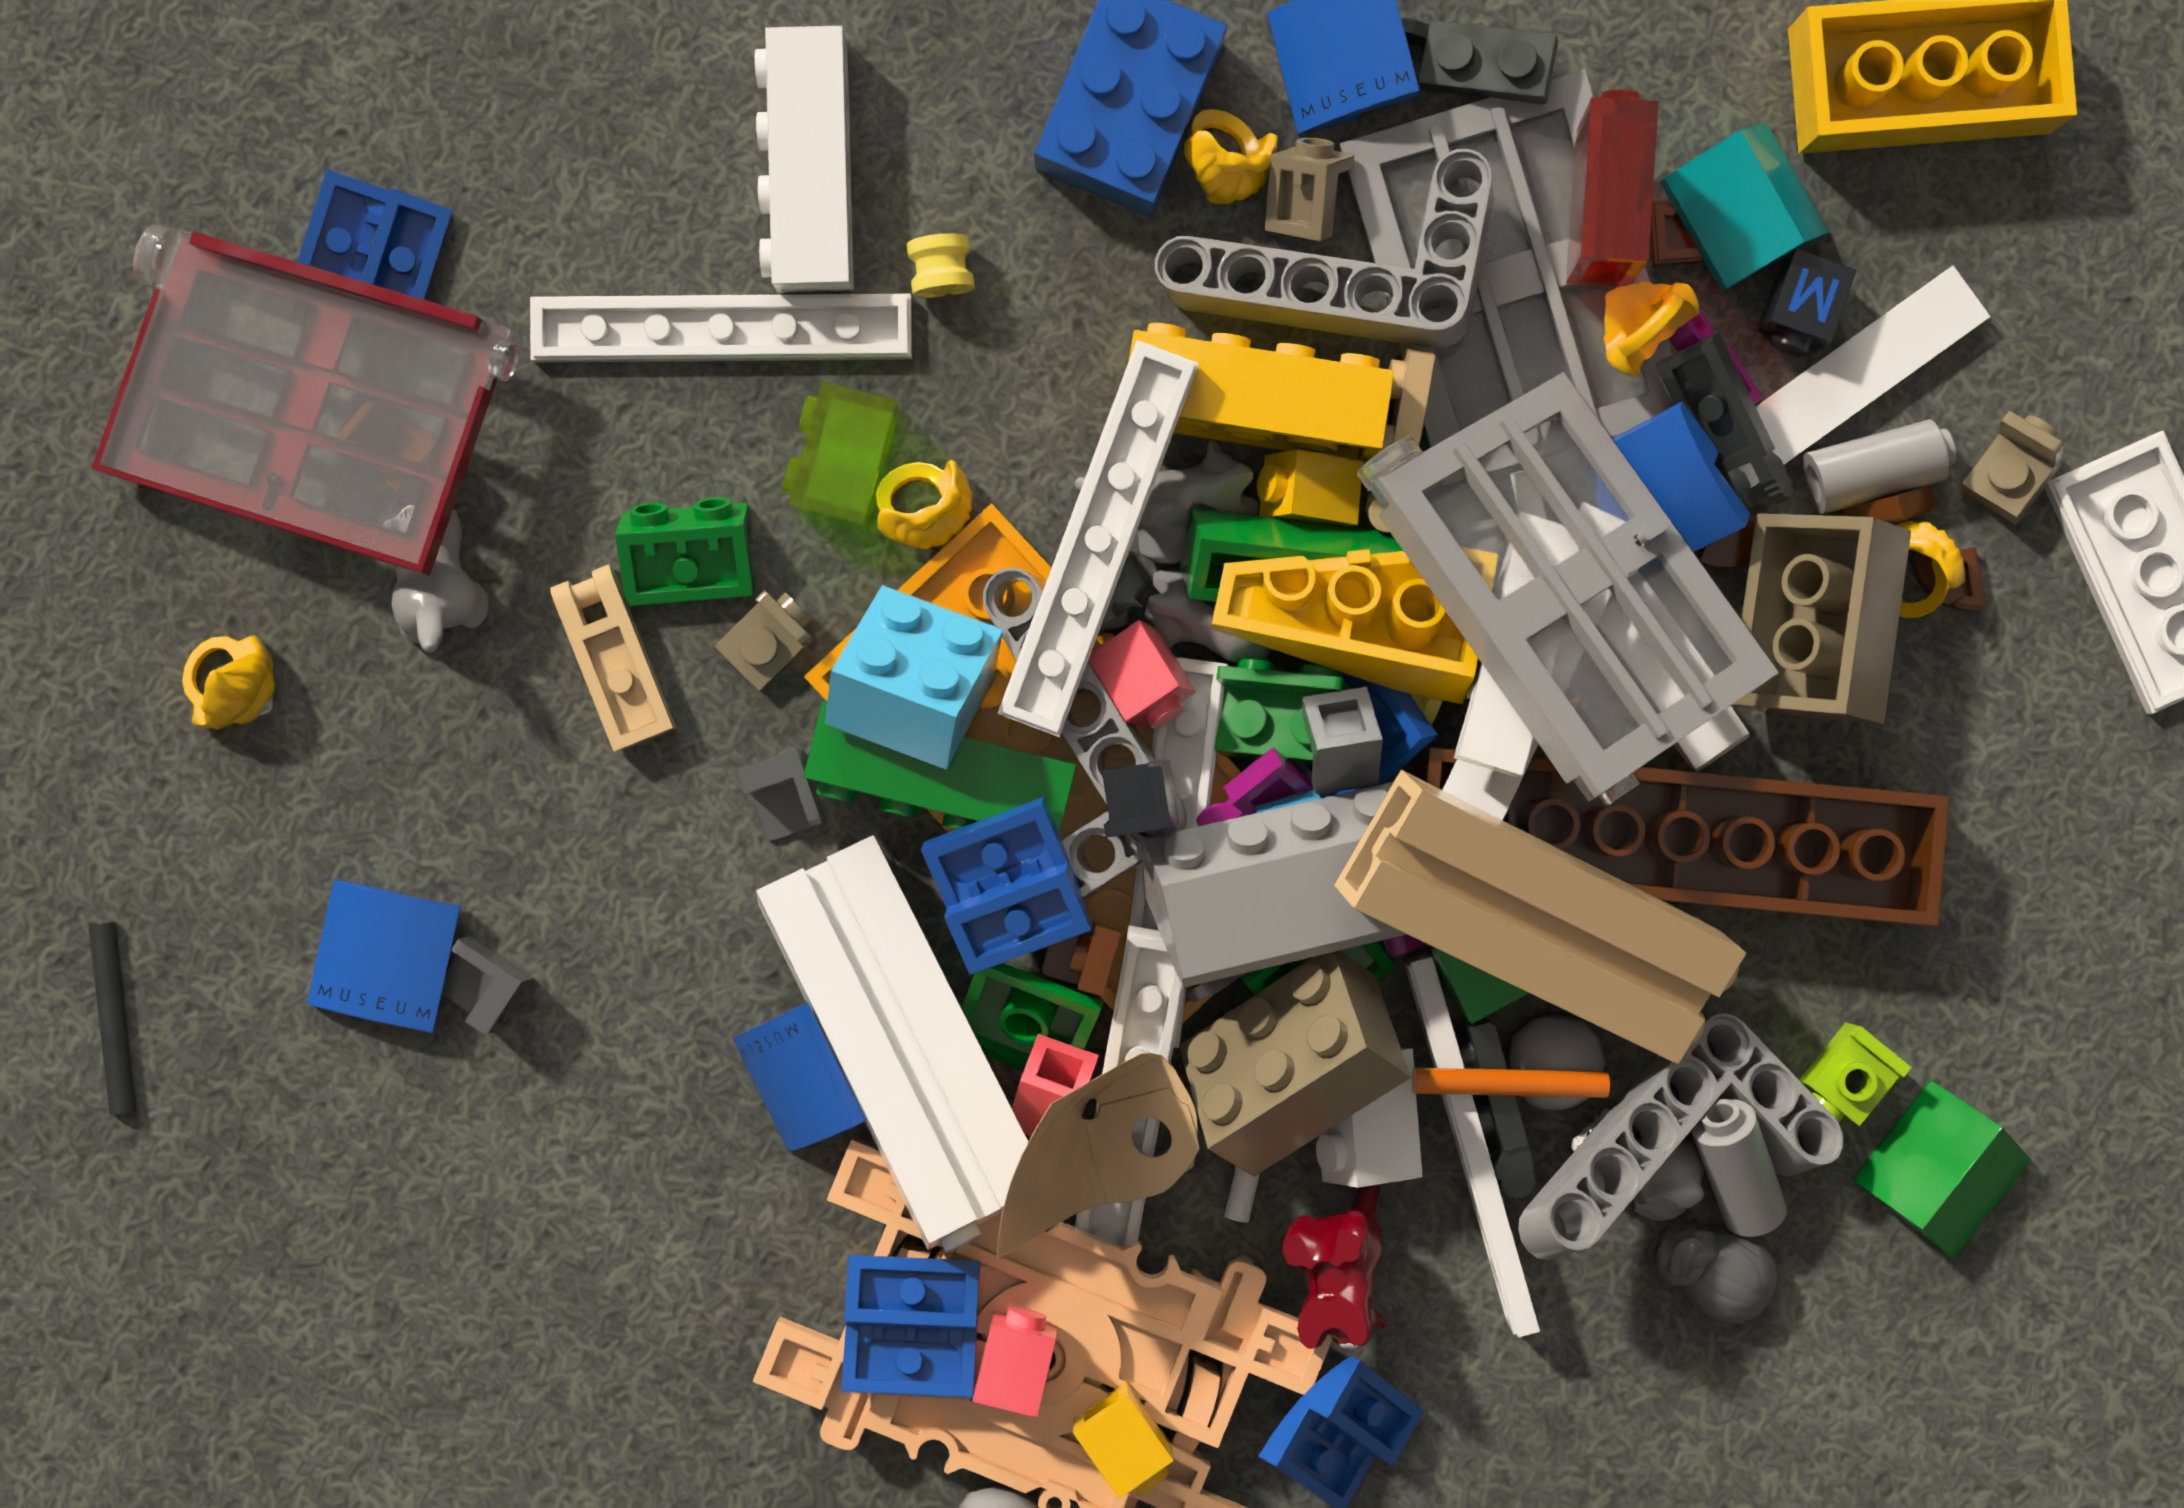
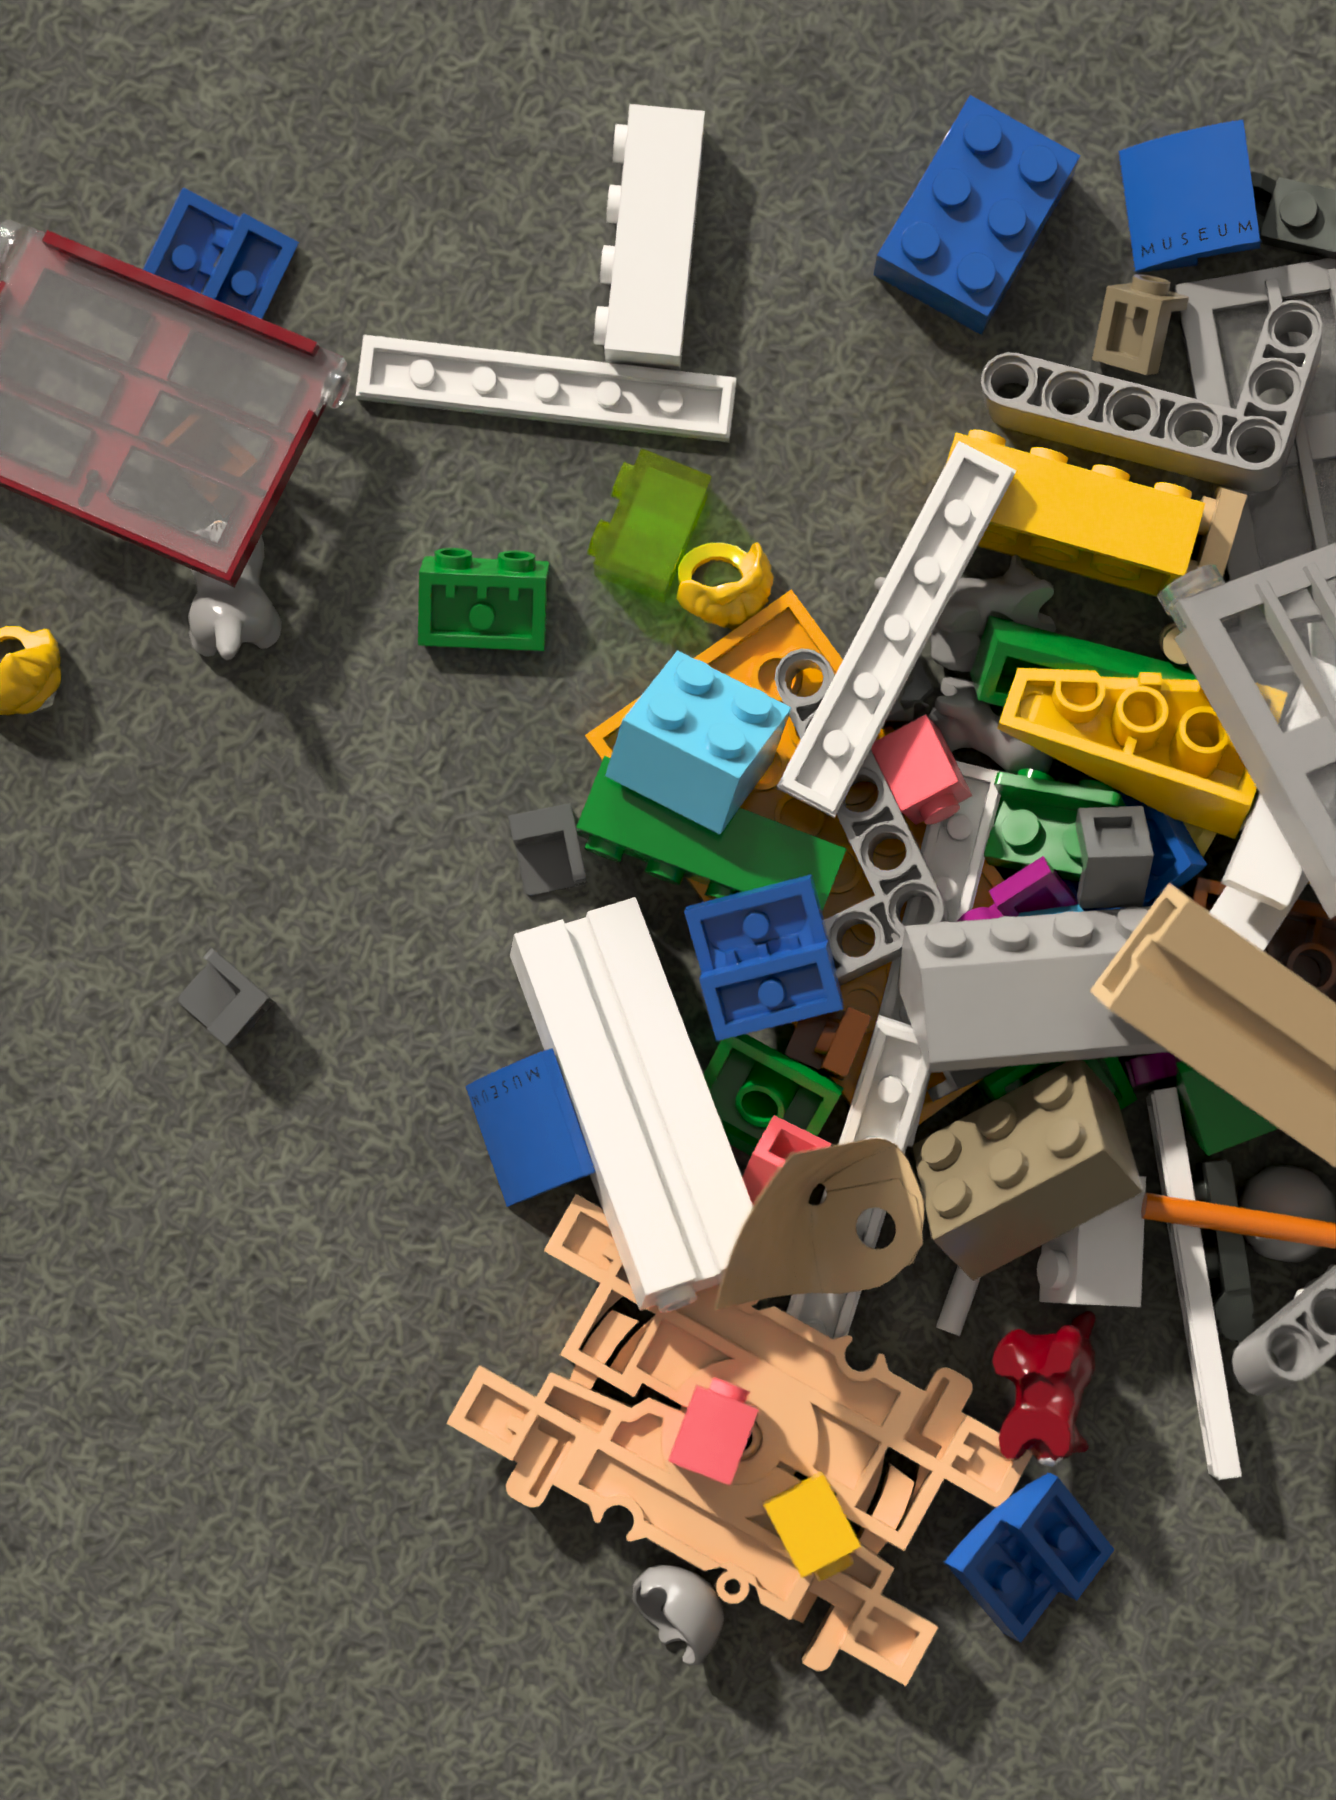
camera: 10 degrees right, 5 degrees down
(383, 955) = (132, 958): blue slope -> none
(613, 660) = (398, 698): tan plate -> none
(767, 639) = (552, 695): dark tan bracket -> none
(910, 1327) = (612, 1386): blue slope -> none
(940, 265) = (770, 353): light yellow wheel -> none
(1140, 798) = (907, 885): black panel -> none
(1222, 173) = (1061, 299): yellow piece -> none
(1310, 487) = (1108, 611): yellow brick -> none

